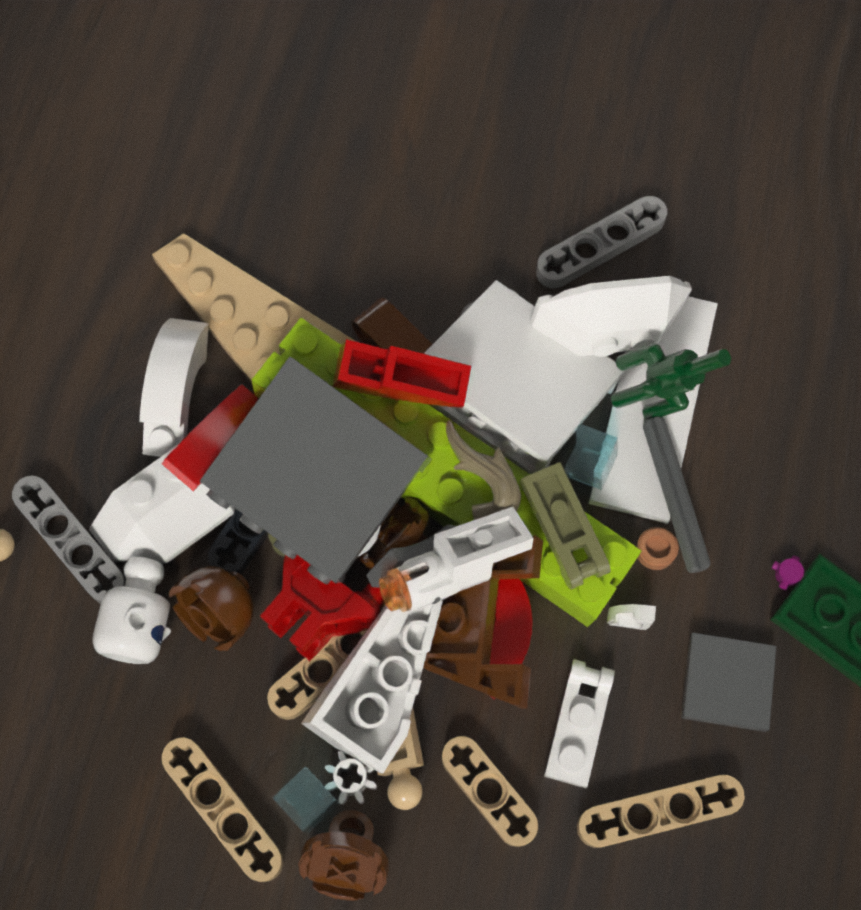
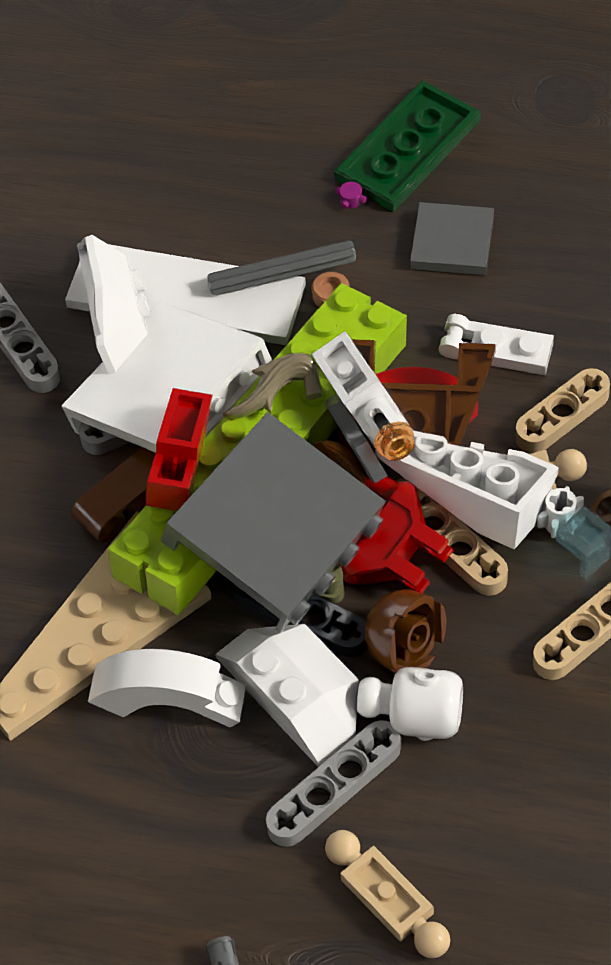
camera: 85 degrees left, 15 degrees down
(205, 442) = (229, 629): red slope -> none
(564, 524) = (321, 324): olive plate -> none
(592, 457) = (251, 317): clear light blue panel -> none
(631, 616) = (398, 294): white tile -> none
(661, 815) = (569, 286): tan beam -> none
(666, 377) = (178, 252): dark green plant -> none

